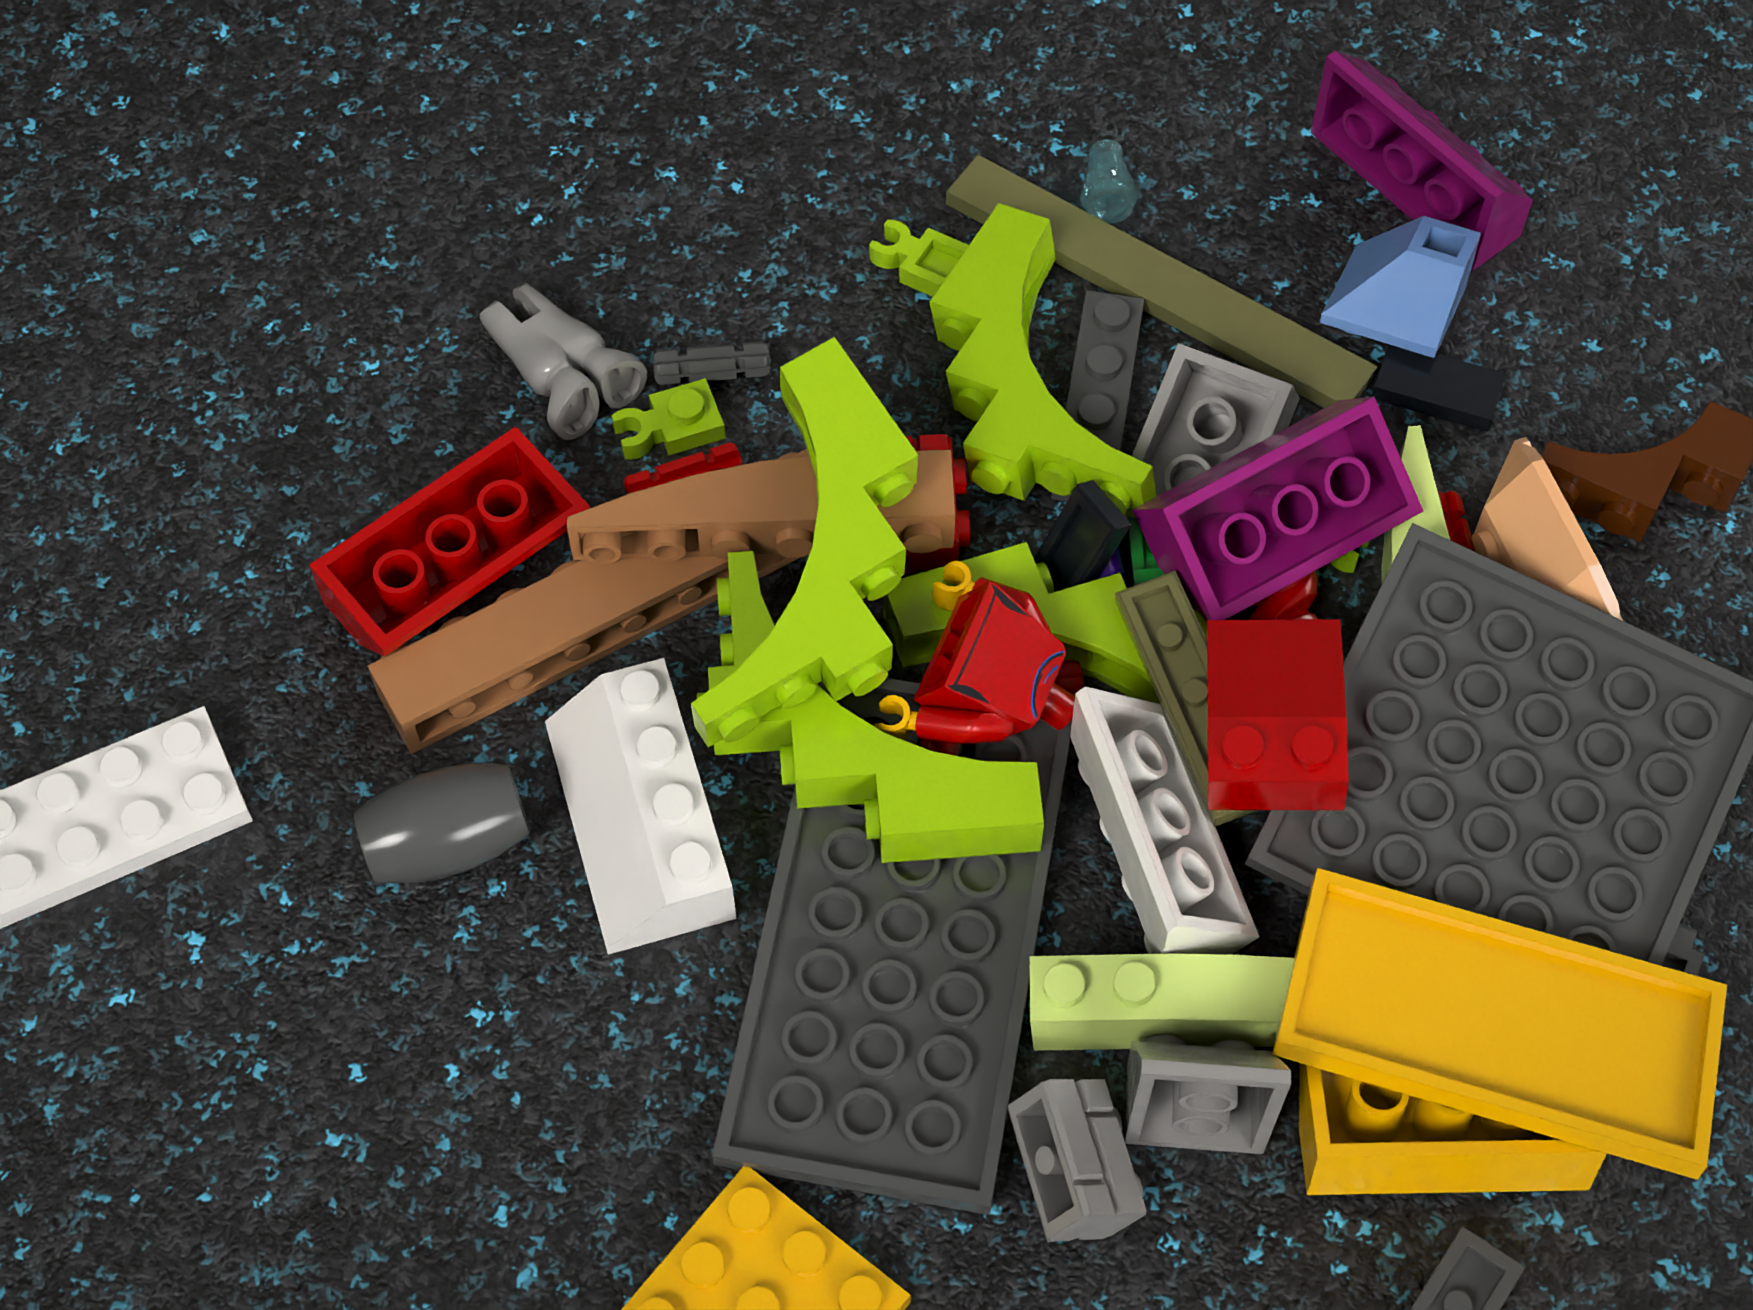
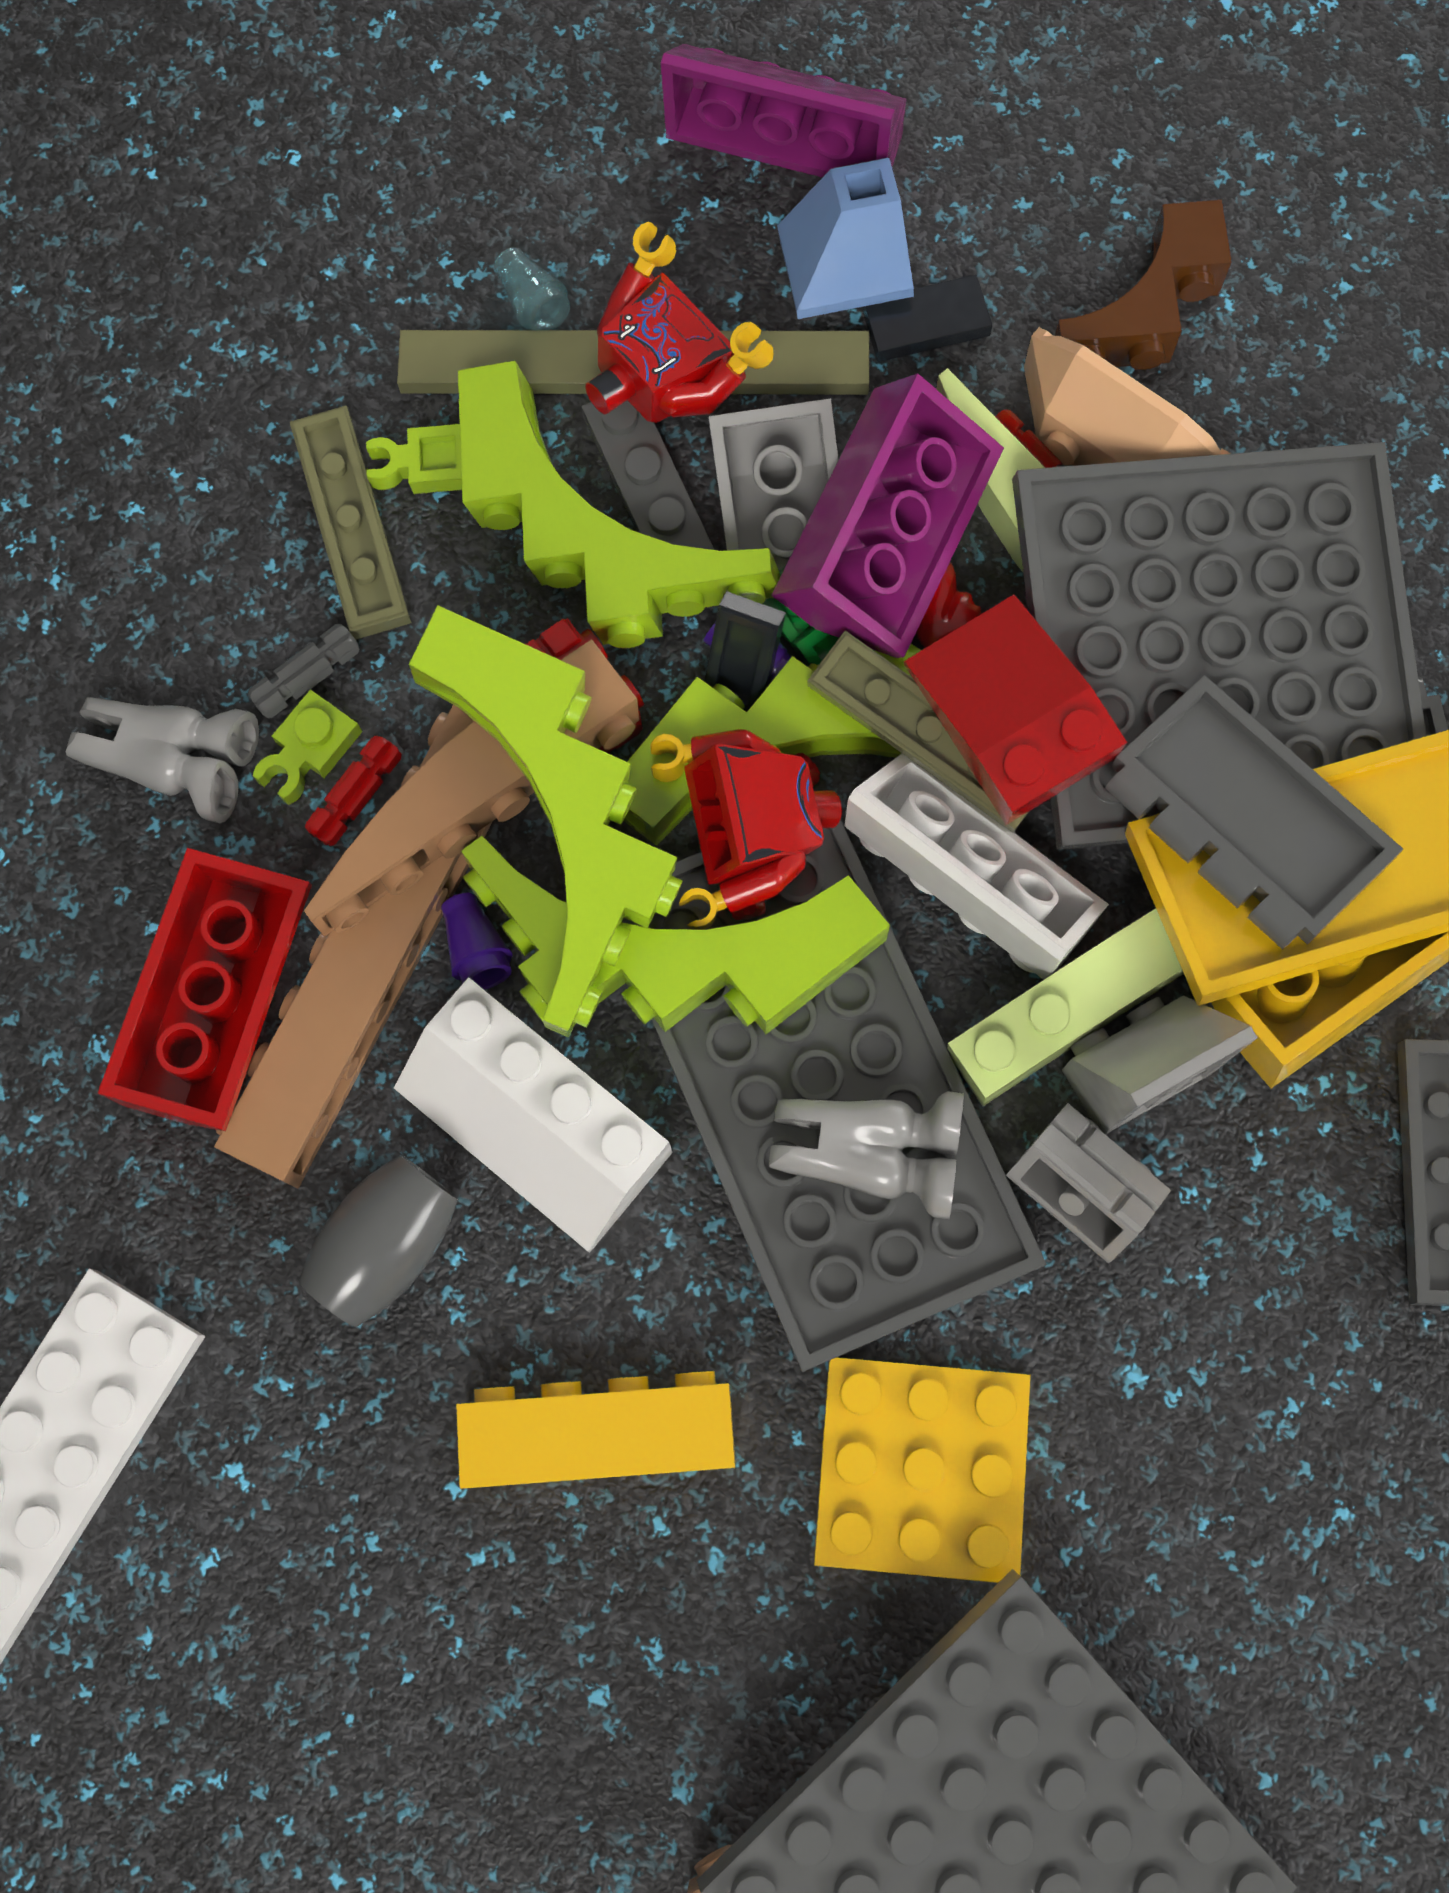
camera: 30 degrees left, 15 degrees up
(505, 1095) = (595, 1434): none -> yellow brick
(692, 646) = (474, 943): none -> dark purple cone
(833, 268) = (350, 523): none -> olive tile
(901, 992) = (865, 1142): none -> light grey piece
(1182, 274) = (663, 348): none -> red torso
(1435, 923) = (1254, 811): none -> dark grey hinge

